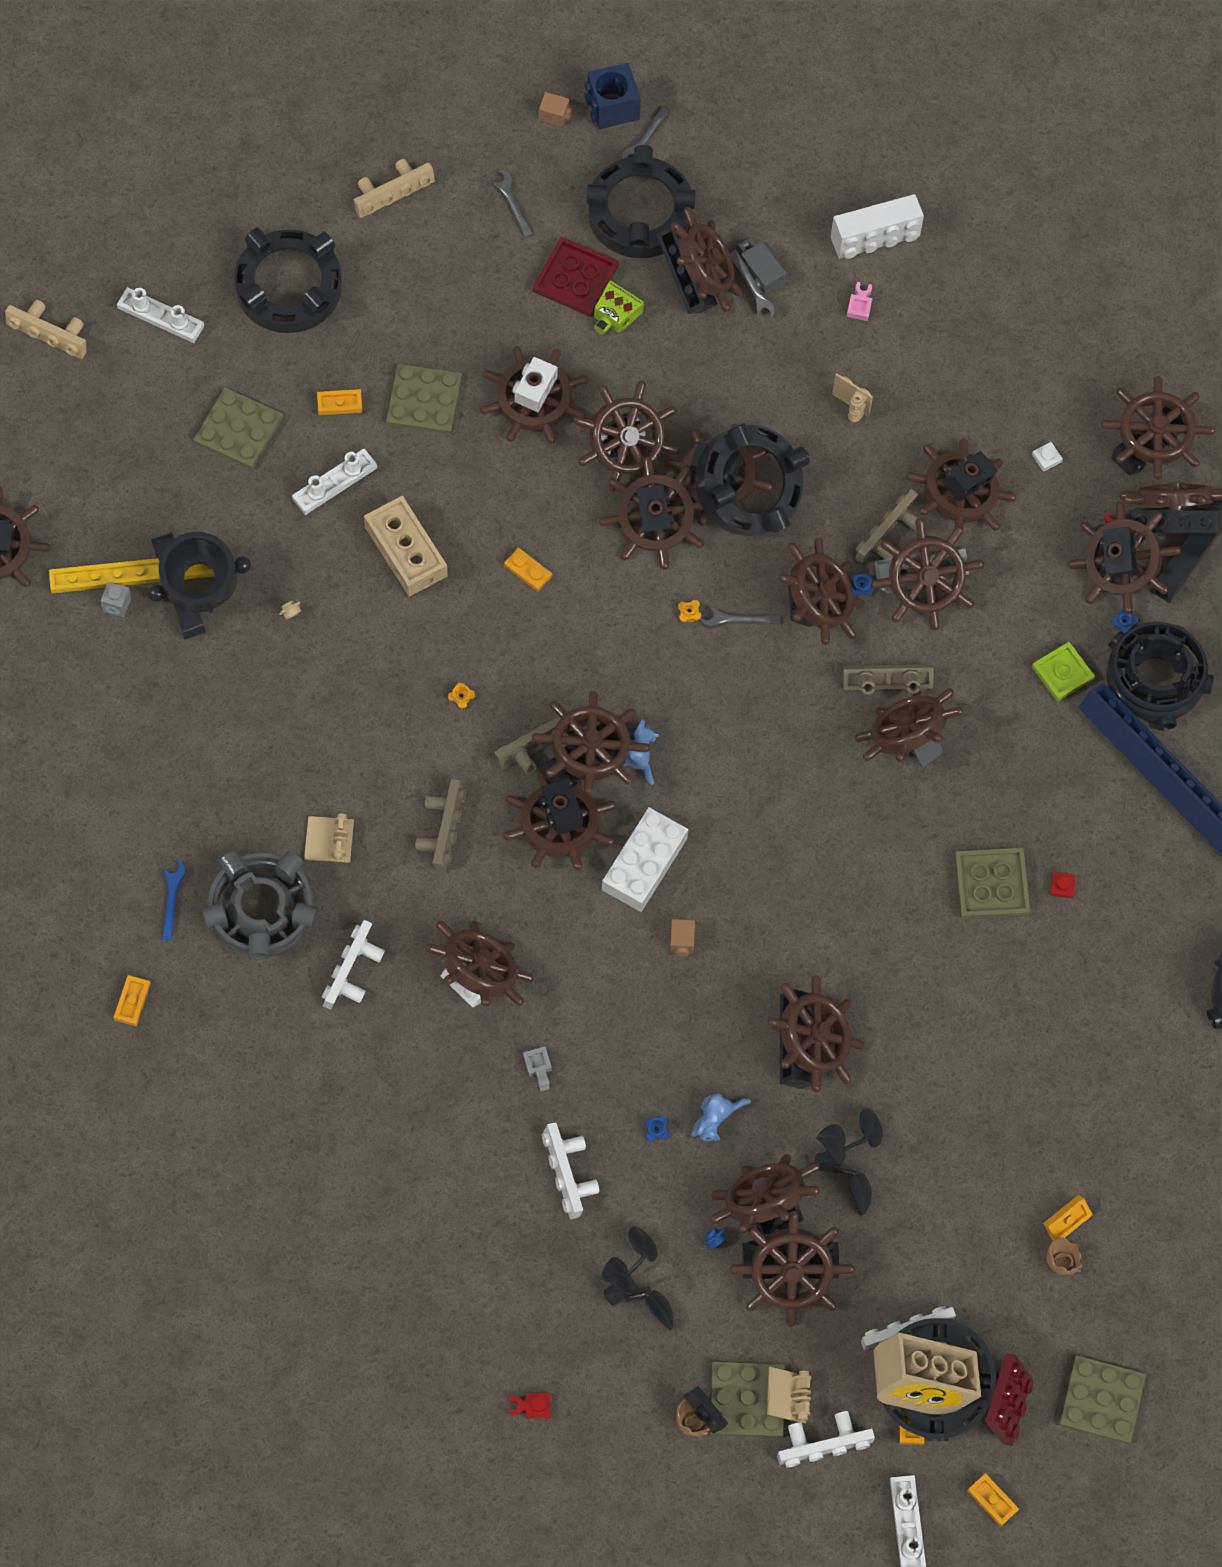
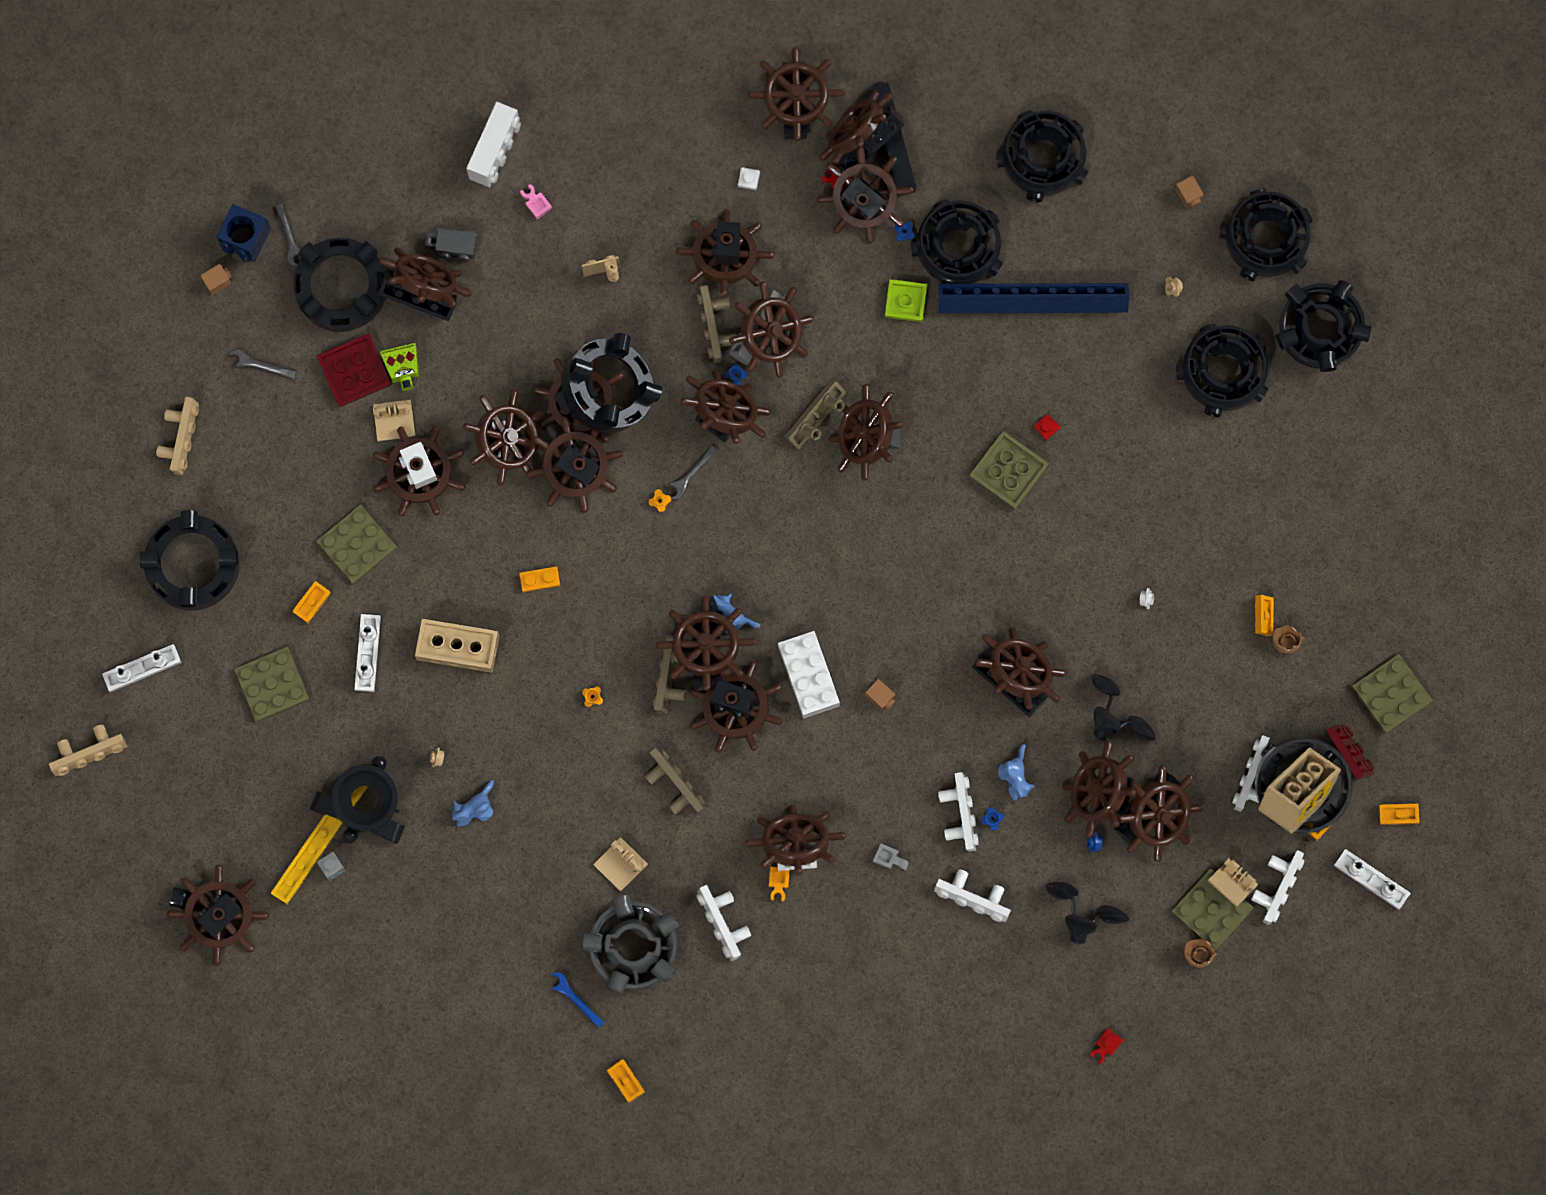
camera: 45 degrees left, 10 degrees up
(274, 676) = (476, 807): none -> medium blue animal
(432, 986) = (778, 880): none -> light orange plate
(564, 337) = (390, 417): none -> tan hinge
(635, 1105) = (968, 820): none -> white plate
(705, 1409) = (1203, 942): black plate -> none
(762, 301) = (478, 264): flat silver piece -> none
(986, 1099) = (1146, 598): none -> white plate

